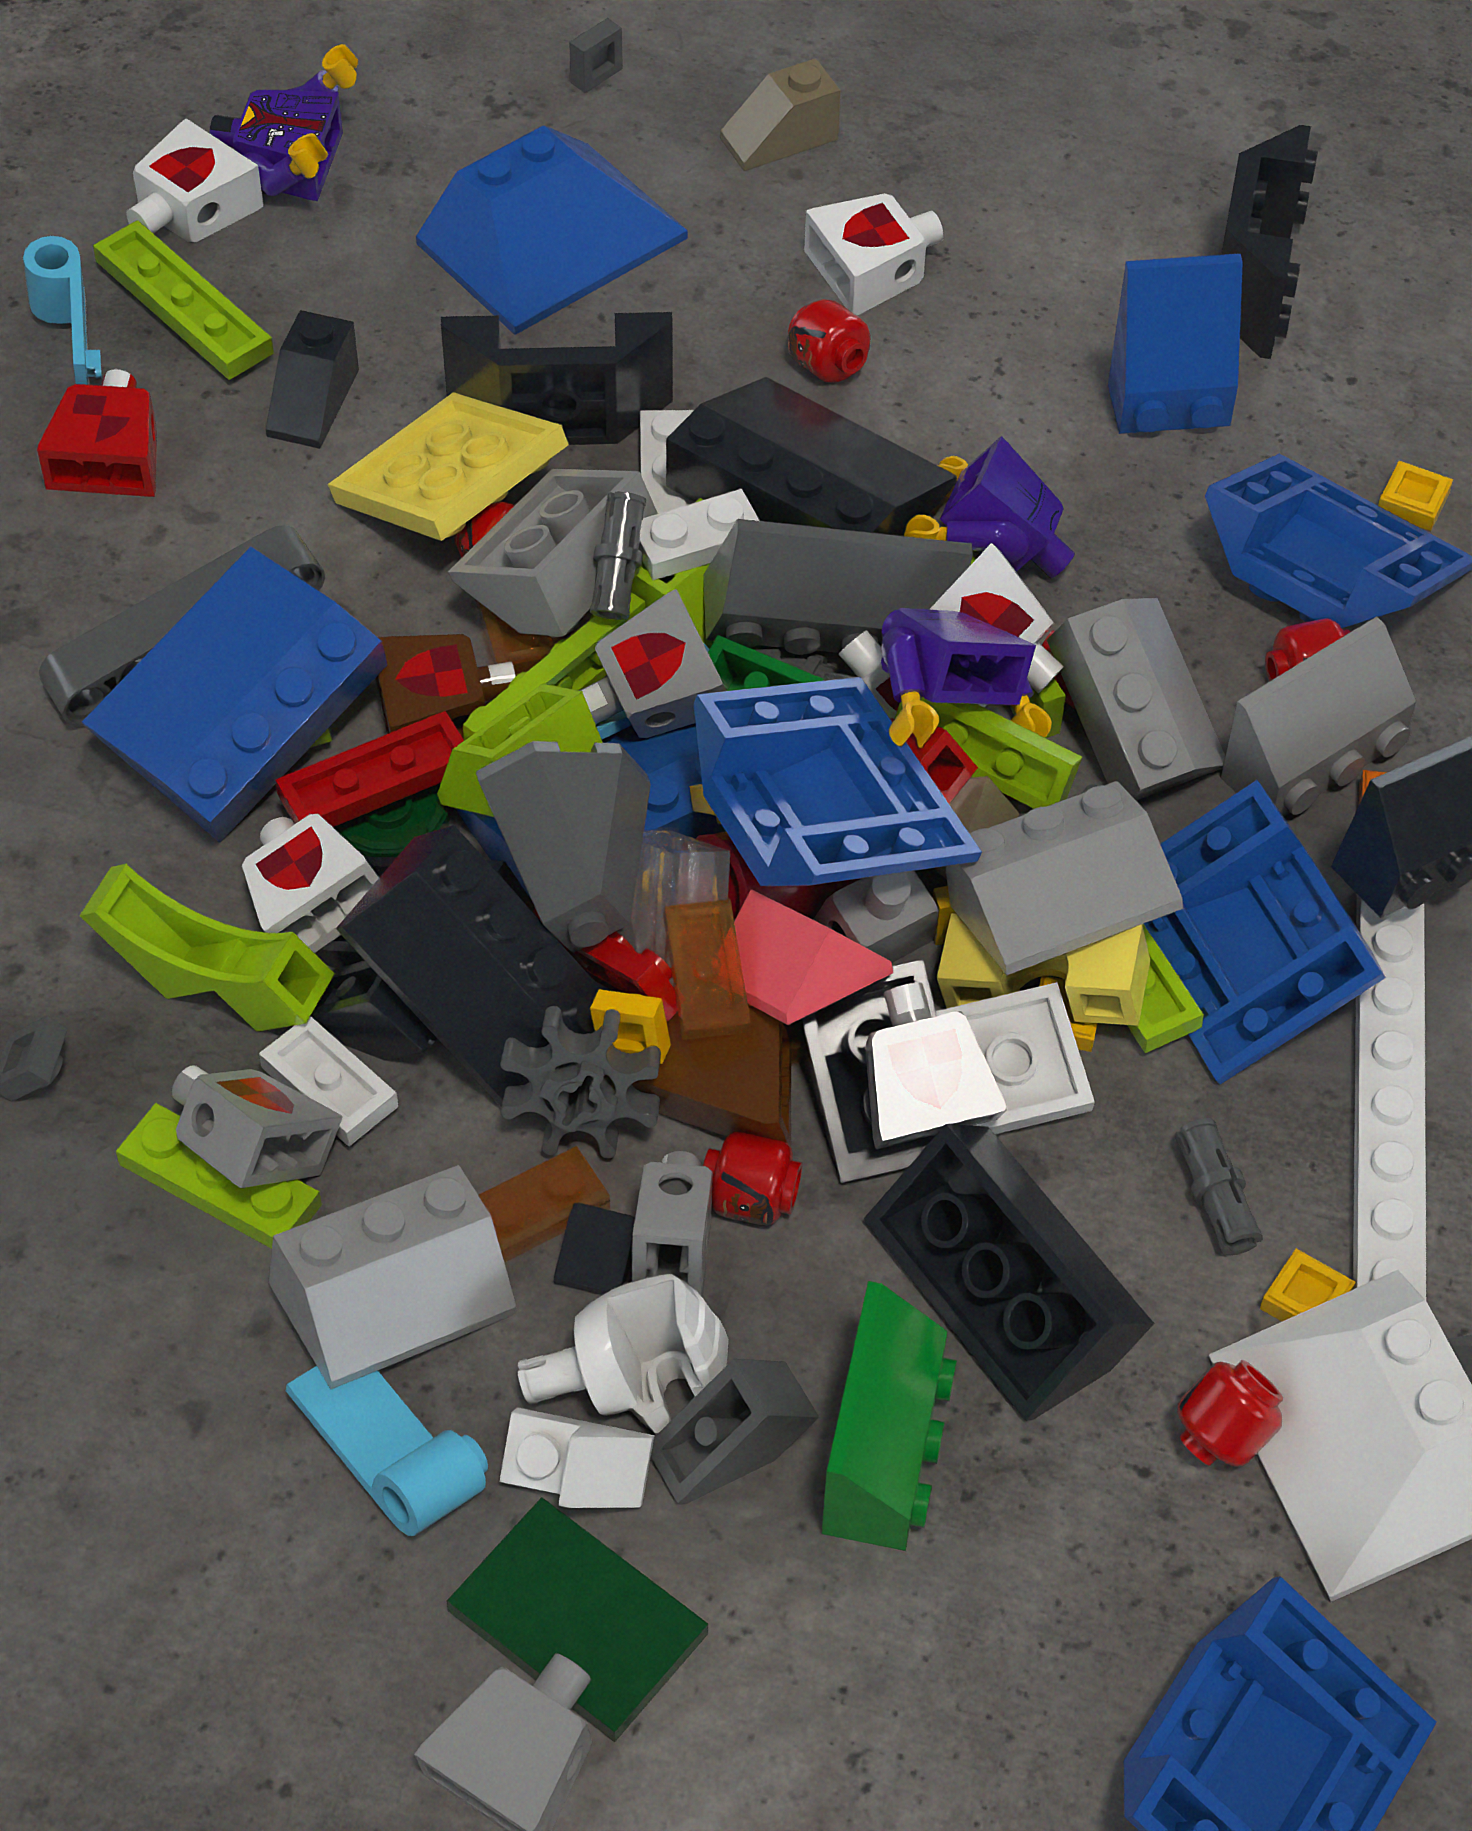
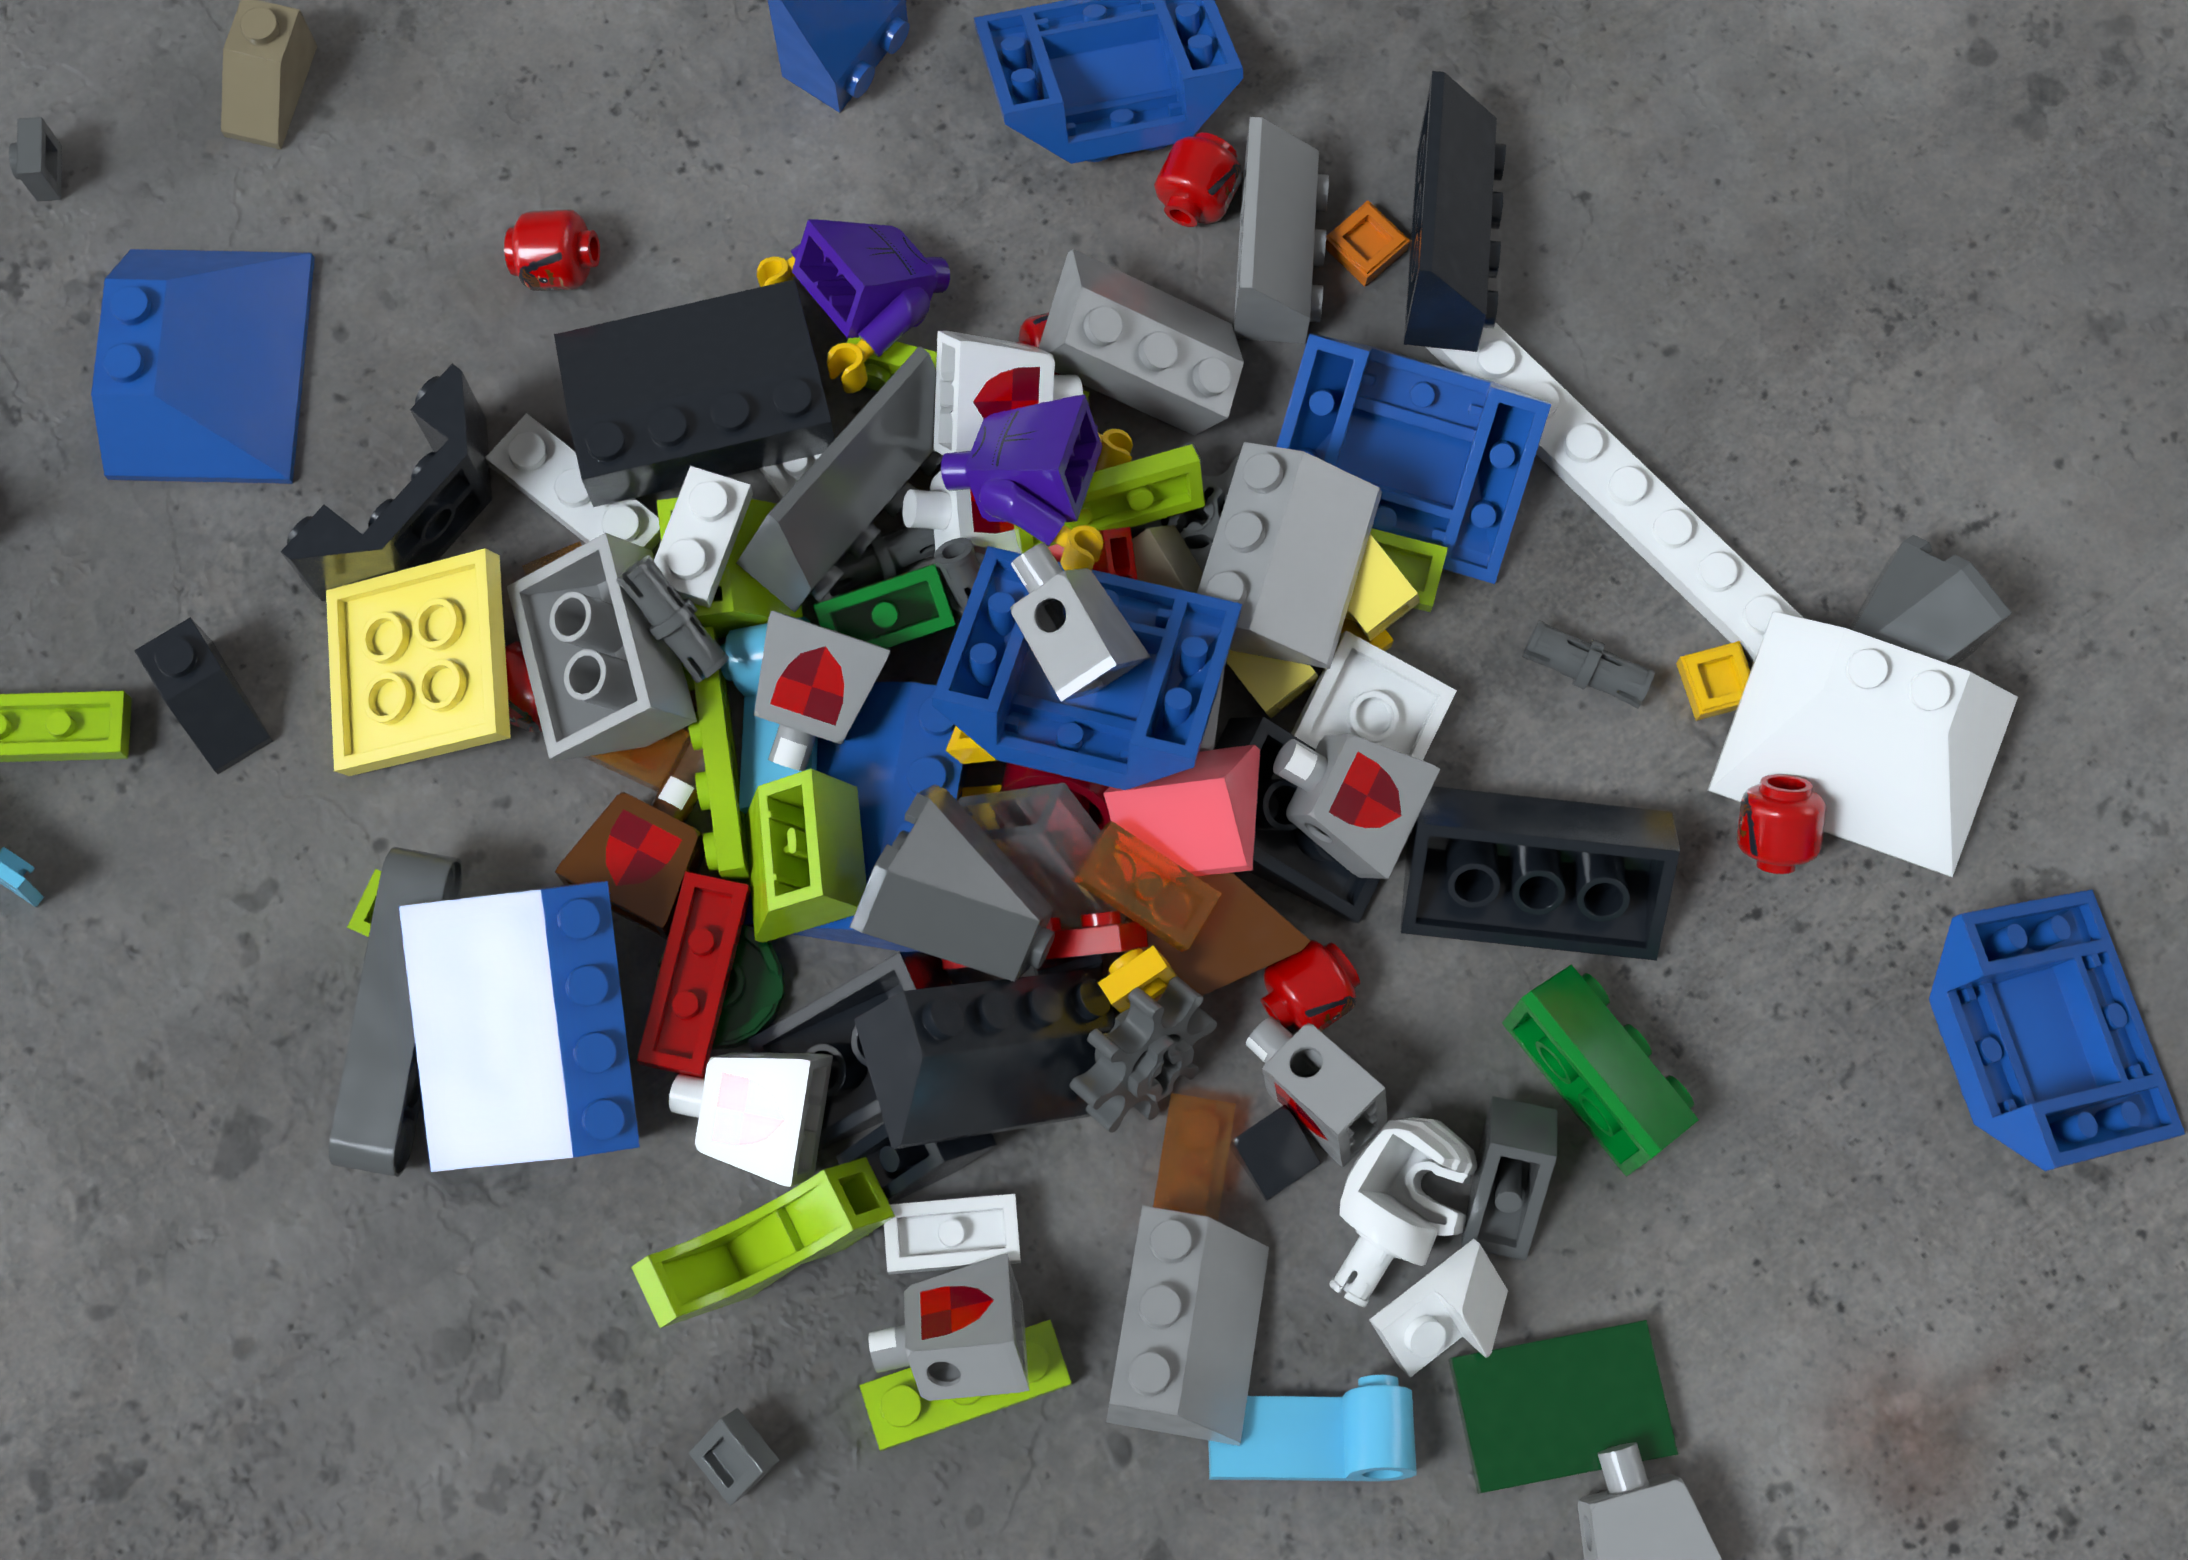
camera: 50 degrees left, 20 degrees up
(102, 439) = (106, 916): red torso -> none
(838, 741) = (1089, 644): none -> light grey torso
(869, 248) = (479, 132): white torso -> none

